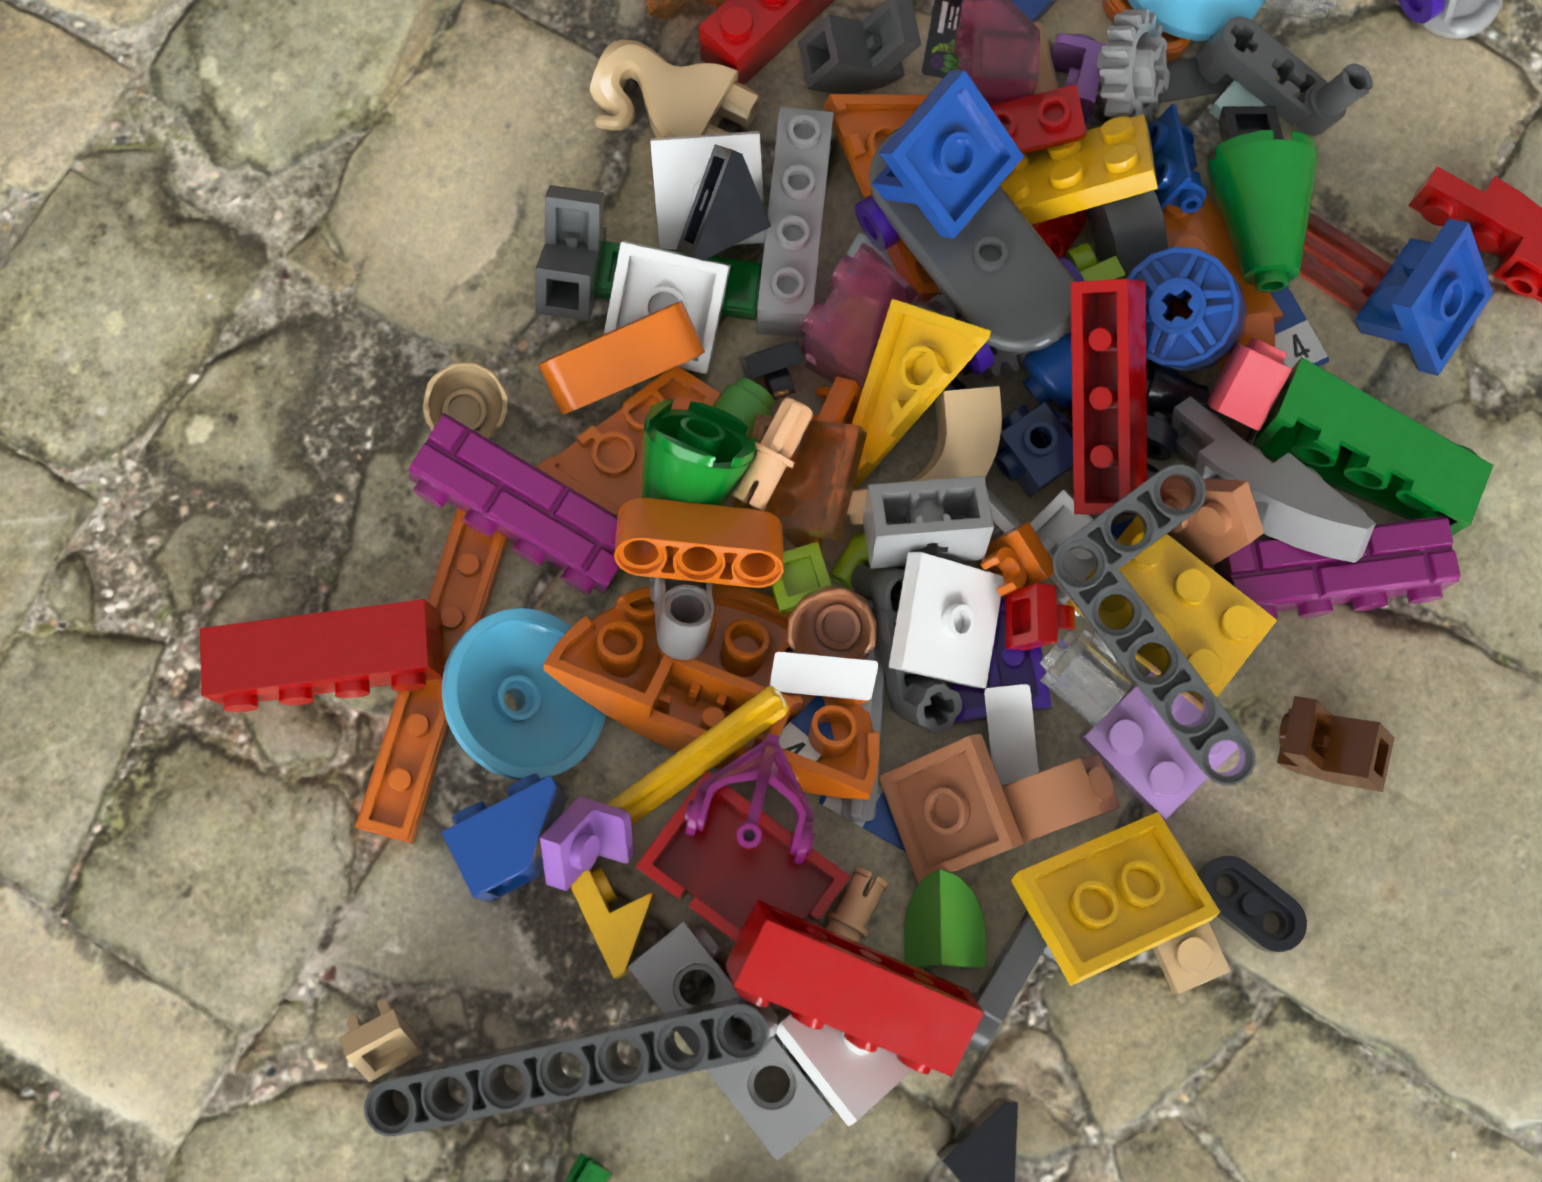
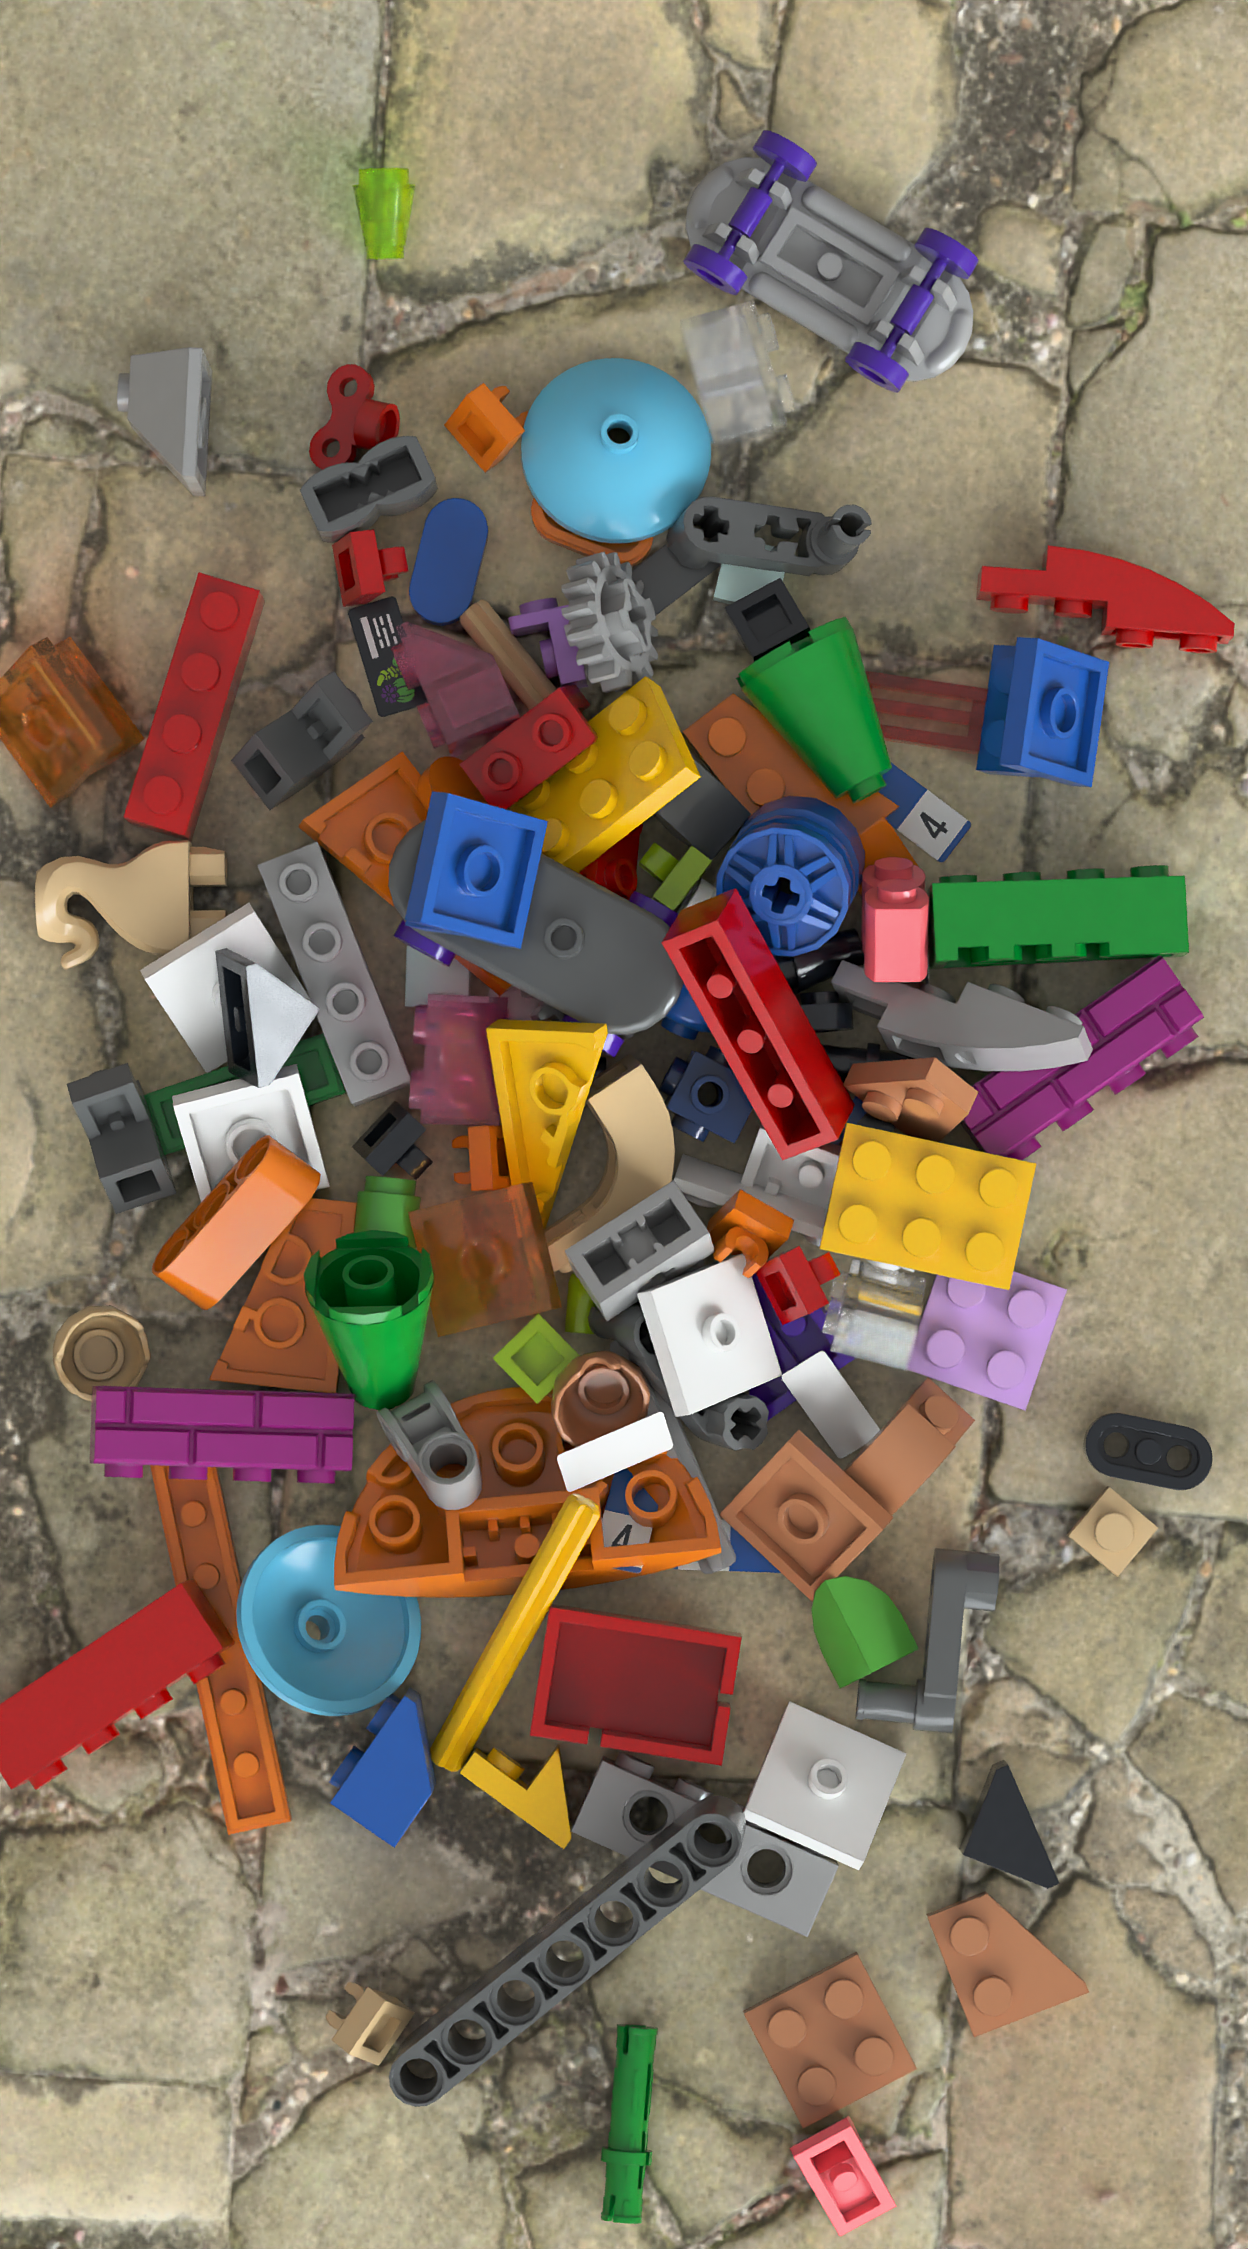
camera: 20 degrees left, 10 degrees up
(582, 835) = (461, 1736): medium lavender bracket -> none
(699, 542) = (425, 1387): orange beam -> none
(767, 766) = (608, 1580): magenta helmet -> none
(774, 453) = (451, 1255): light nougat axle -> none
(852, 990) = (797, 1744): red brick -> none
(854, 908) = (761, 1660): light nougat pin -> none
(1114, 897) = (1008, 1519): yellow plate -> none
(1143, 626) = (907, 1251): dark grey beam -> none
(1175, 163) = (689, 681): blue hinge -> none
(1333, 746) = (1156, 1253): reddish brown brick -> none

